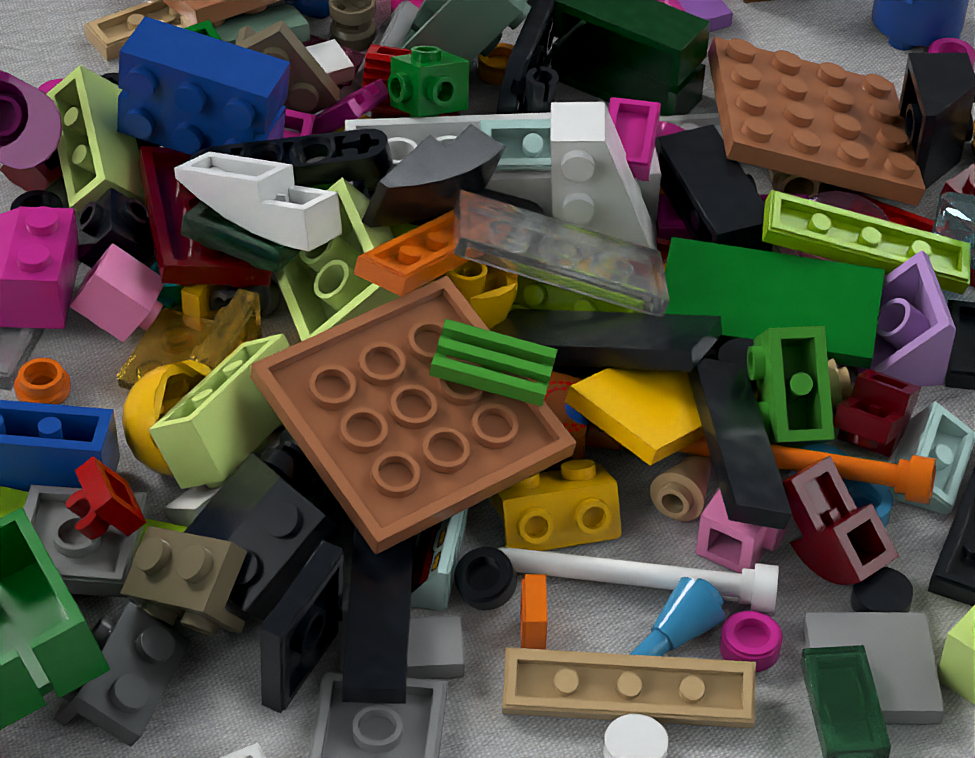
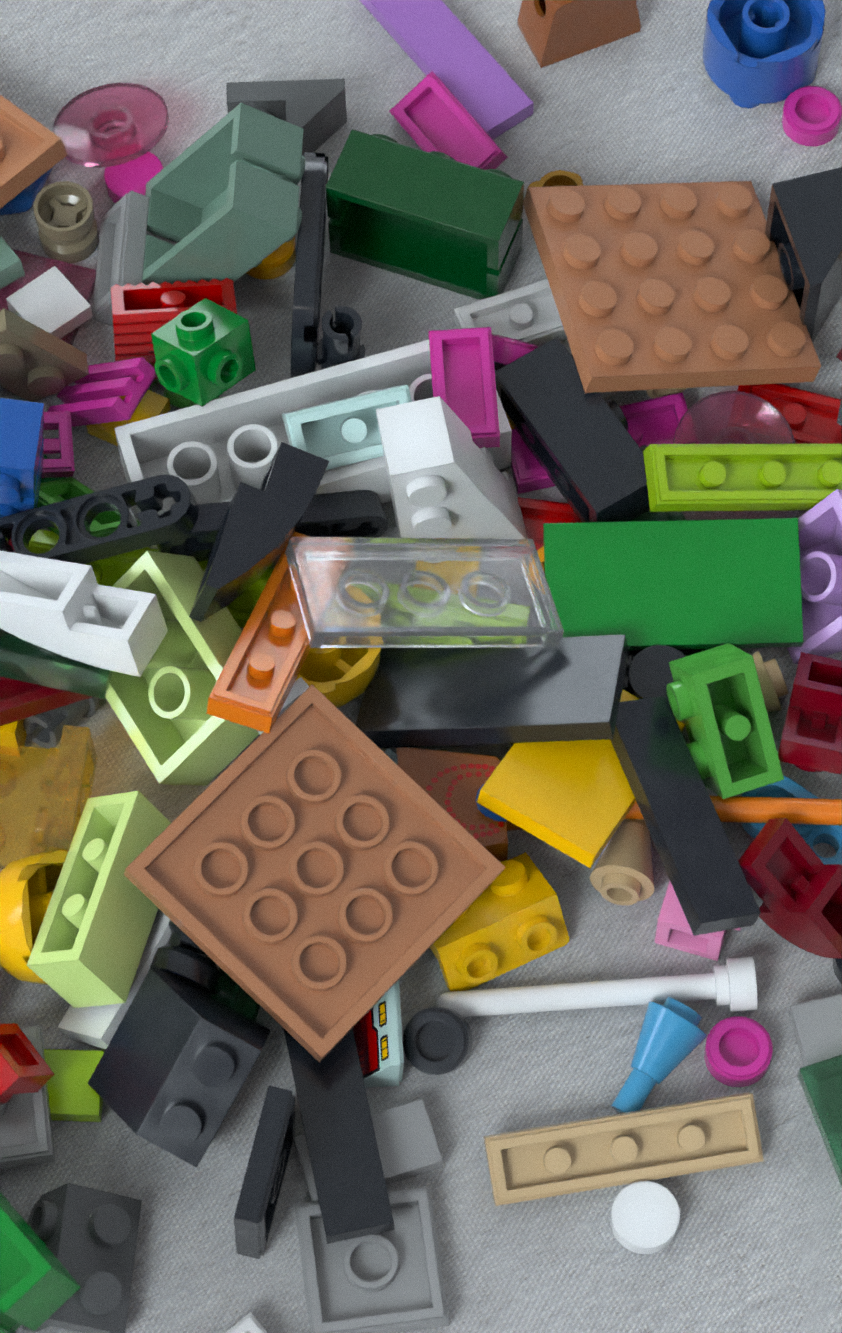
camera: 10 degrees left, 20 degrees up
(186, 580) = (123, 1145): dark tan bracket -> none
(494, 354) = (400, 770): bright green tile -> none
(533, 612) = (503, 1085): orange tile -> none

